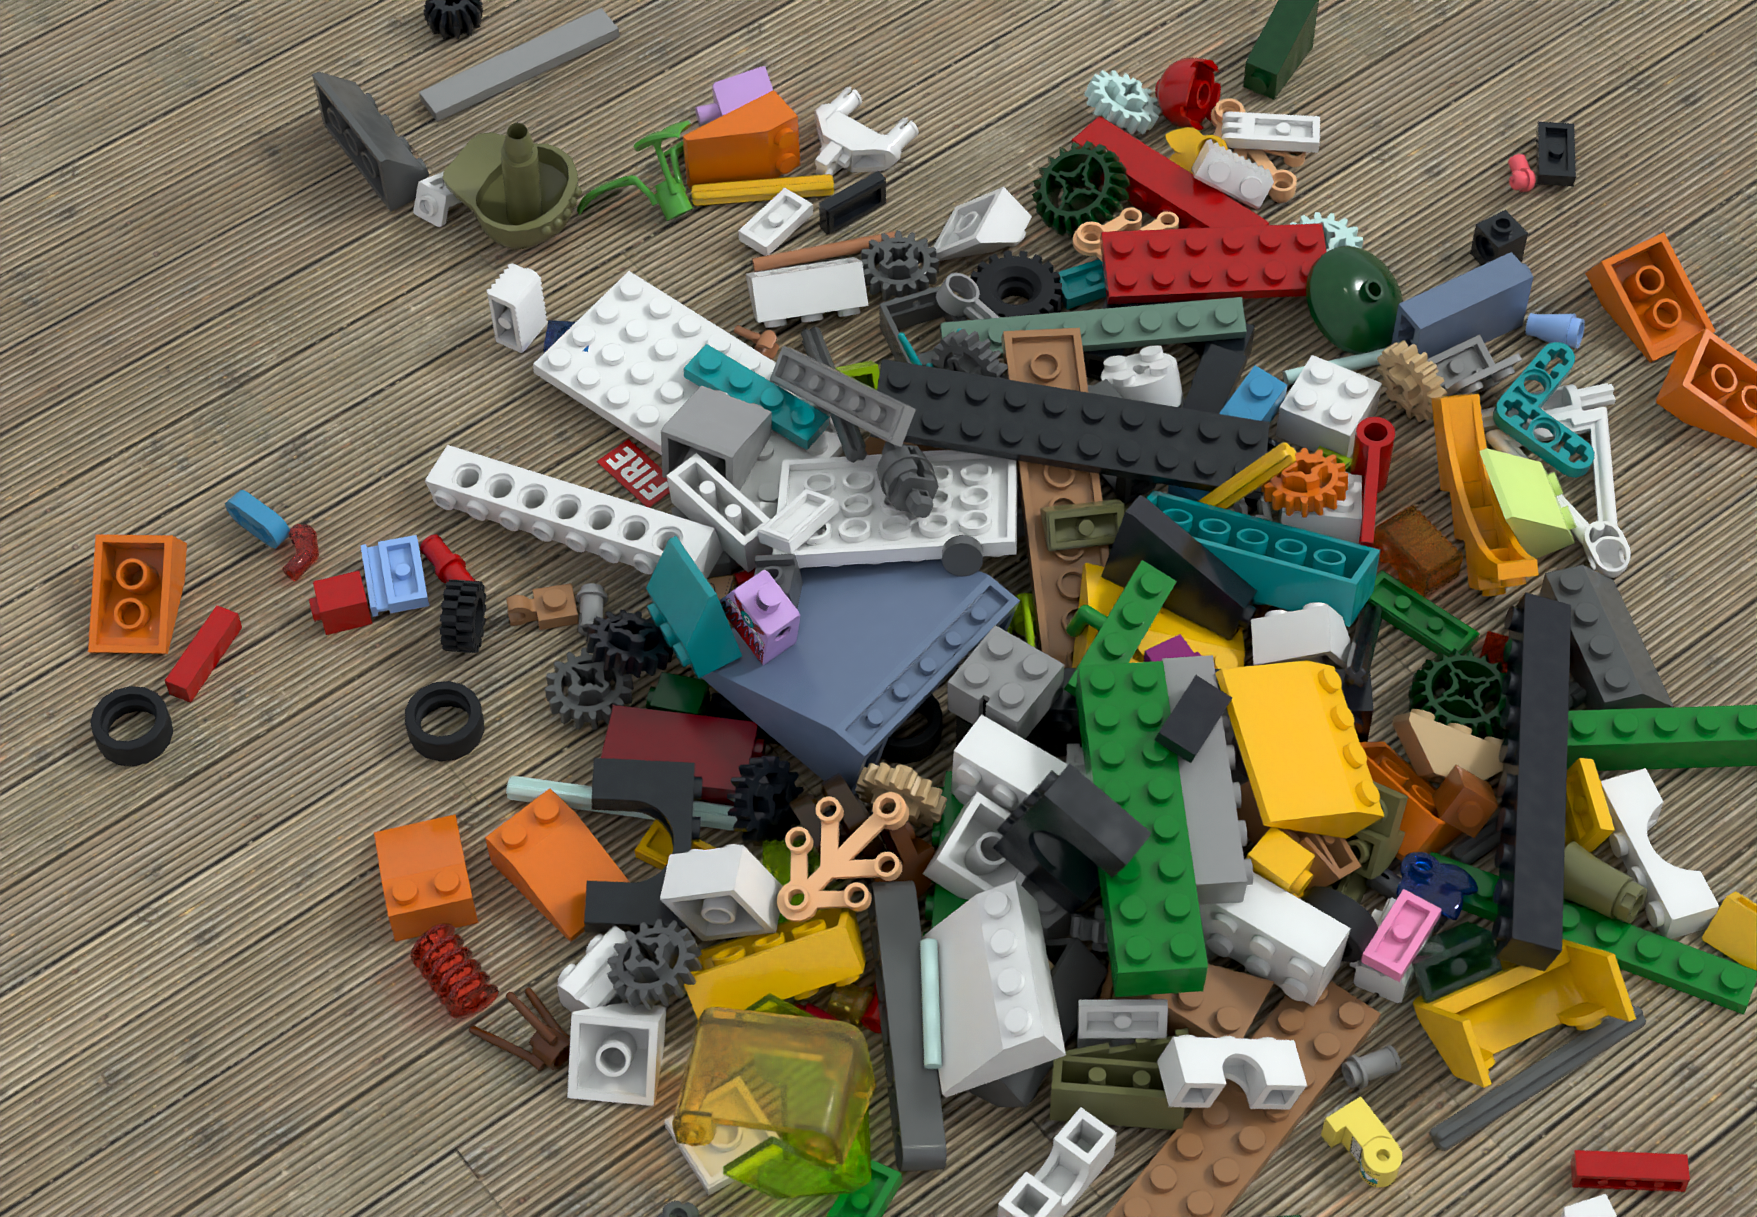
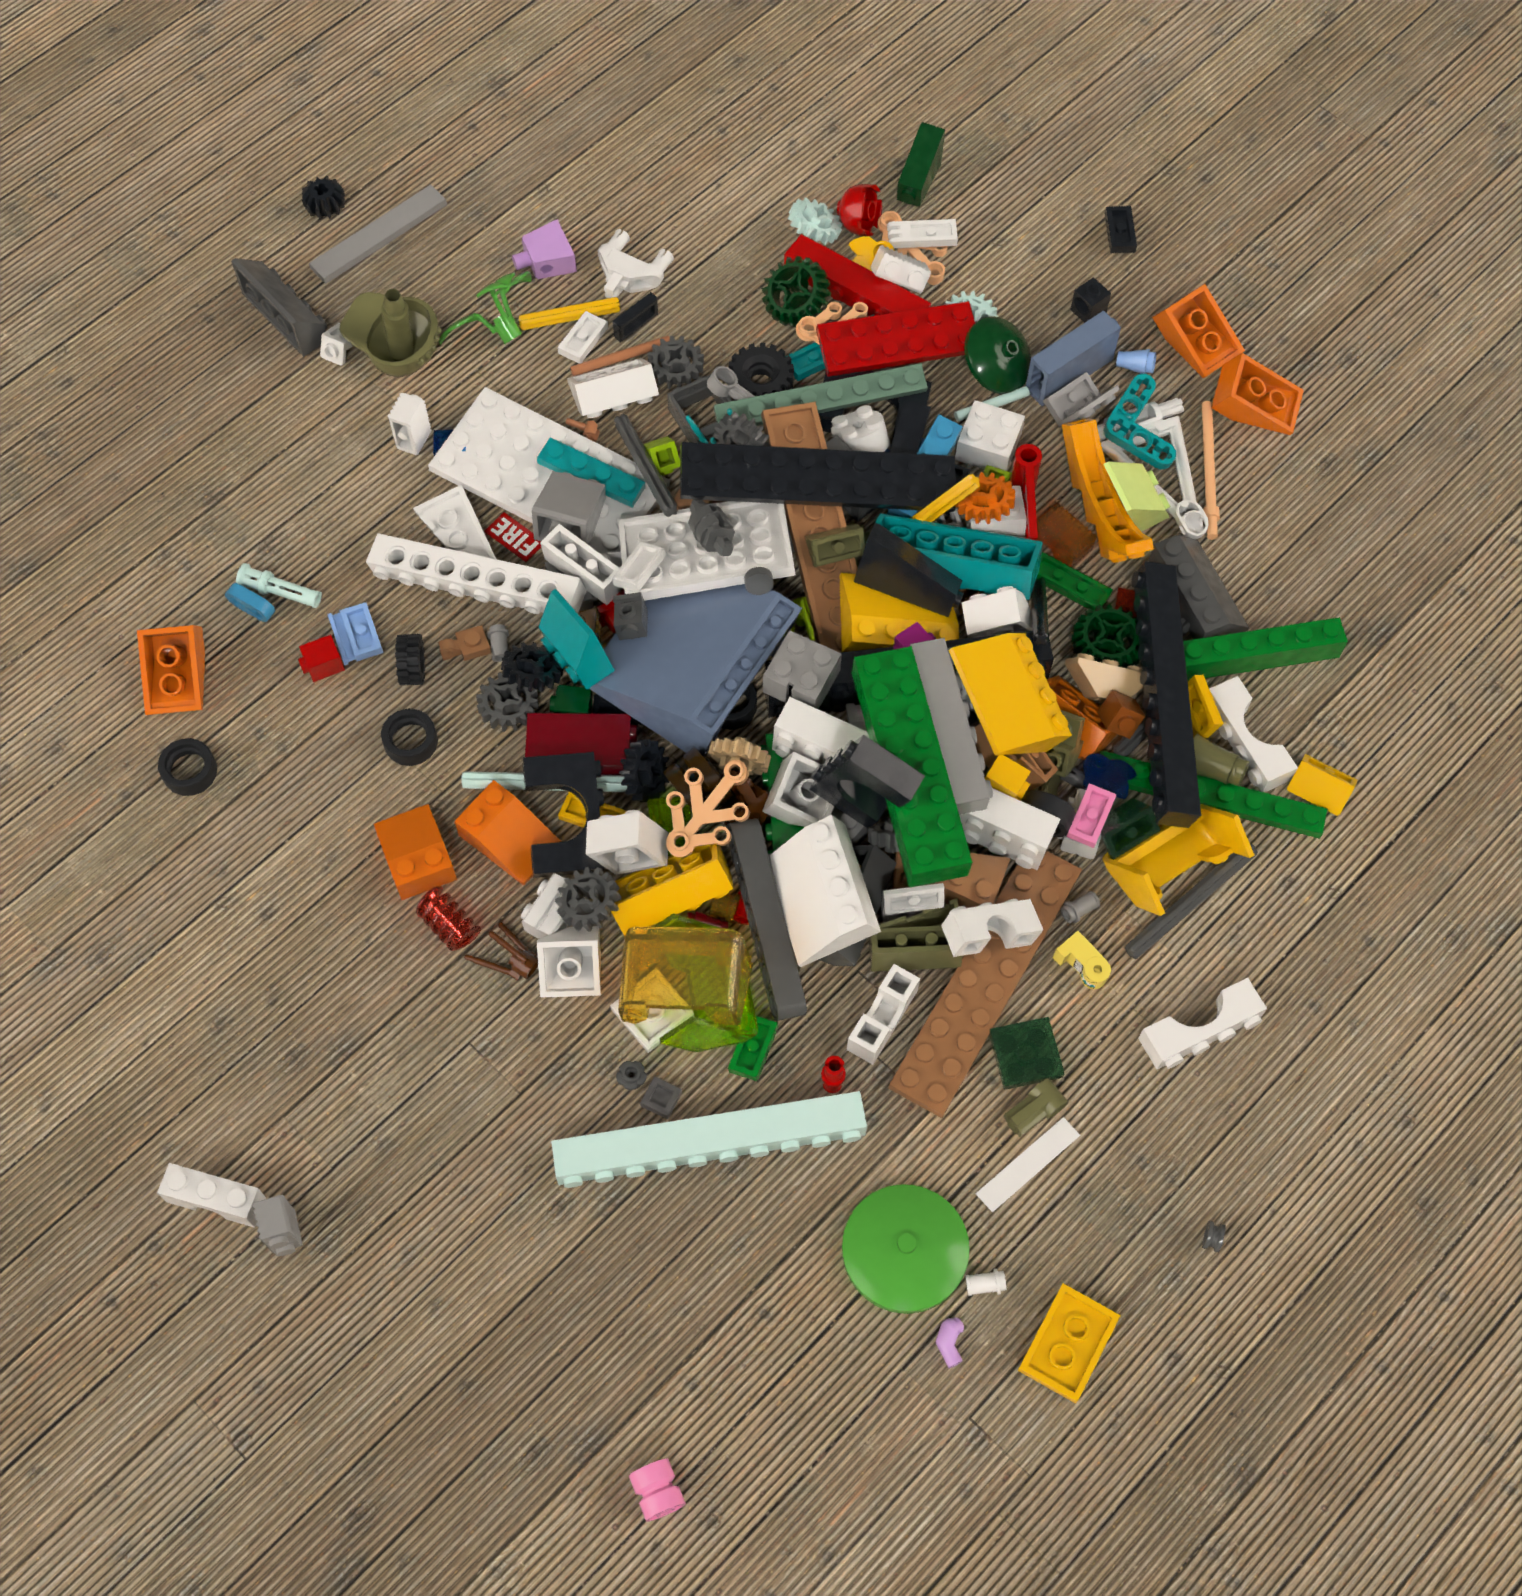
camera: 10 degrees left, 10 degrees up
(203, 654) = (228, 707): red piece -> none
(287, 497) = (265, 583): none -> light aqua pin
(306, 551) = (289, 622): clear red arm -> none
(446, 563) = (392, 622): red pin -> none
(557, 443) = (455, 523): none -> white wing
(744, 144) = (553, 281): orange slope -> none
(760, 613) = (626, 641): lavender torso -> none
(843, 395) = (655, 469): light grey tile -> none
(930, 1004) = (782, 904): light aqua bar -> none
(983, 226) = (730, 325): white slope -> none
(1126, 623) = (876, 619): green plate -> none
(1193, 719) = (938, 687): black tile -> none
(1410, 379) = (1044, 411): tan gear -> none
(1522, 176) = (1100, 250): coral arm -> none
(1630, 1170) = (1259, 957): red piece -> none
(1638, 539) = (1211, 509): none -> light nougat bar

